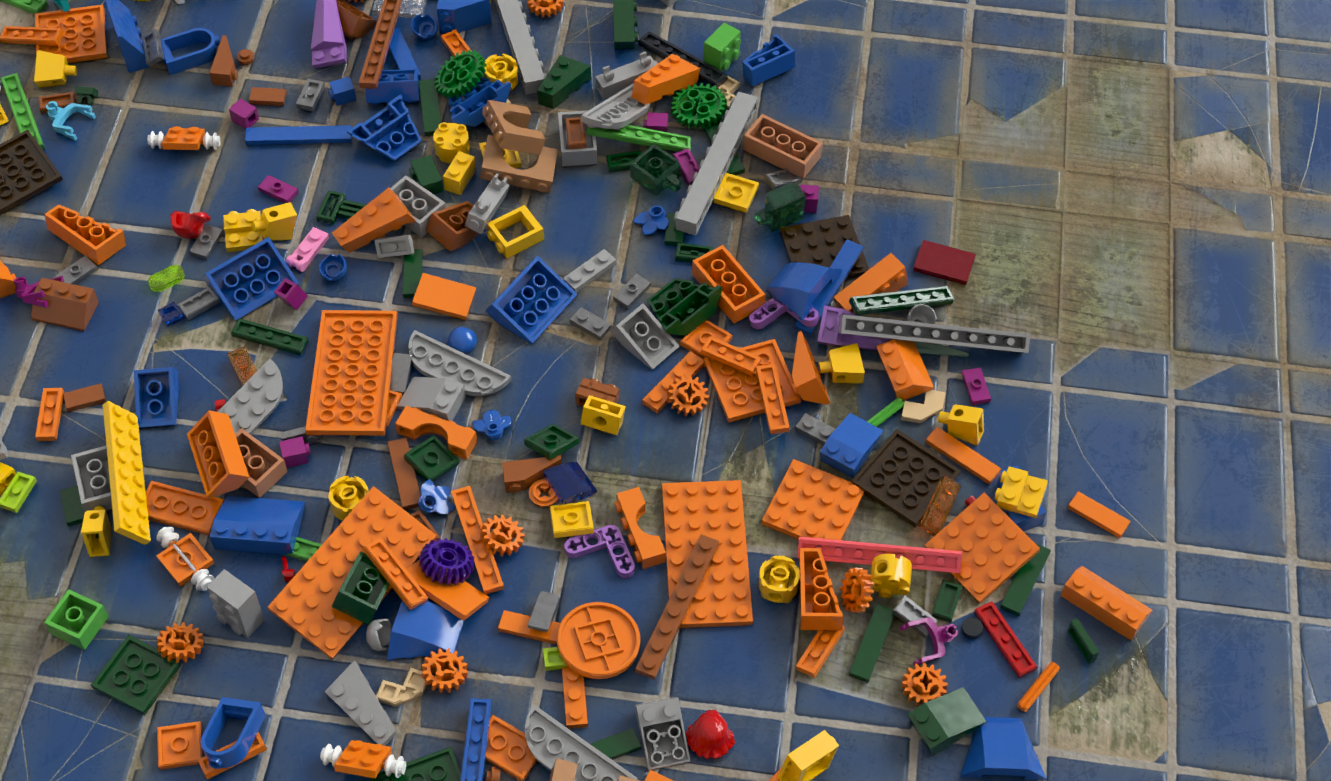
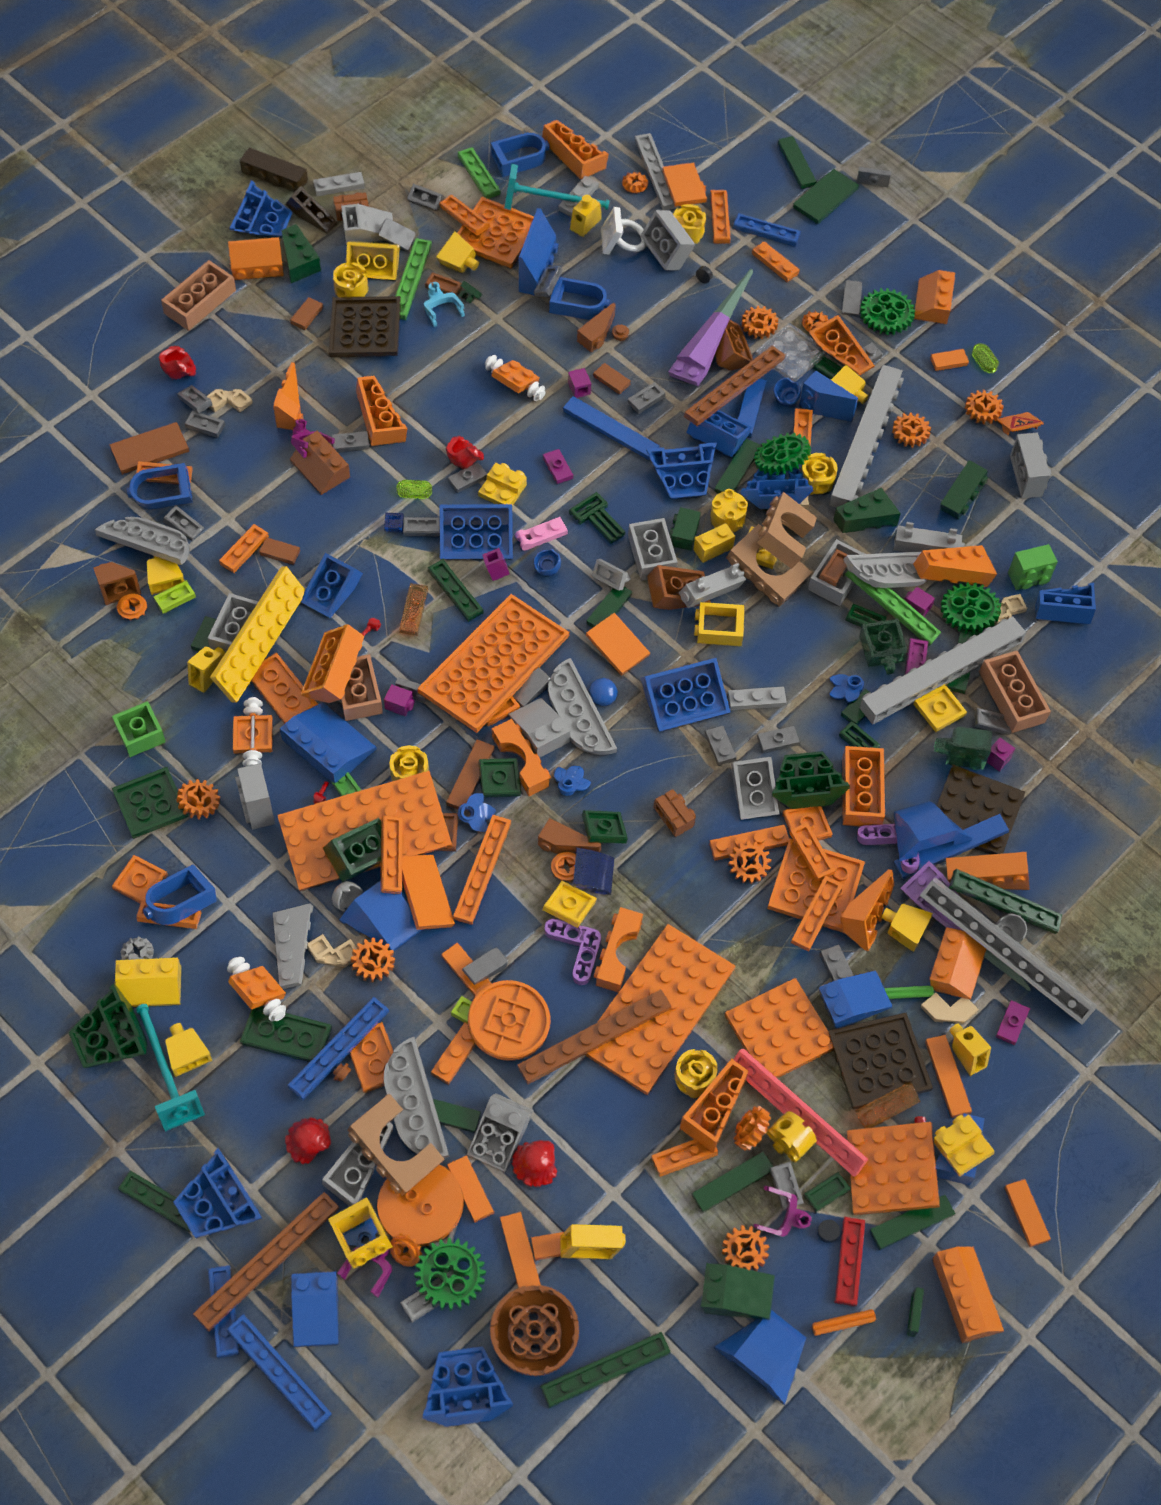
camera: 35 degrees right, 5 degrees up
(255, 399) = (398, 637): light grey plate -> none
(276, 222) = (529, 495): yellow torso -> none
(342, 91) = (674, 410): blue brick -> none
(373, 221) = (607, 542): orange wedge -> none
(446, 561) = (442, 871): dark purple gear -> none
(502, 534) = (495, 880): orange gear -> none
(602, 415) = (663, 832): yellow brick -> none
(664, 49) = (983, 536): black tile -> none
(944, 262) = (1078, 891): dark red tile -> none

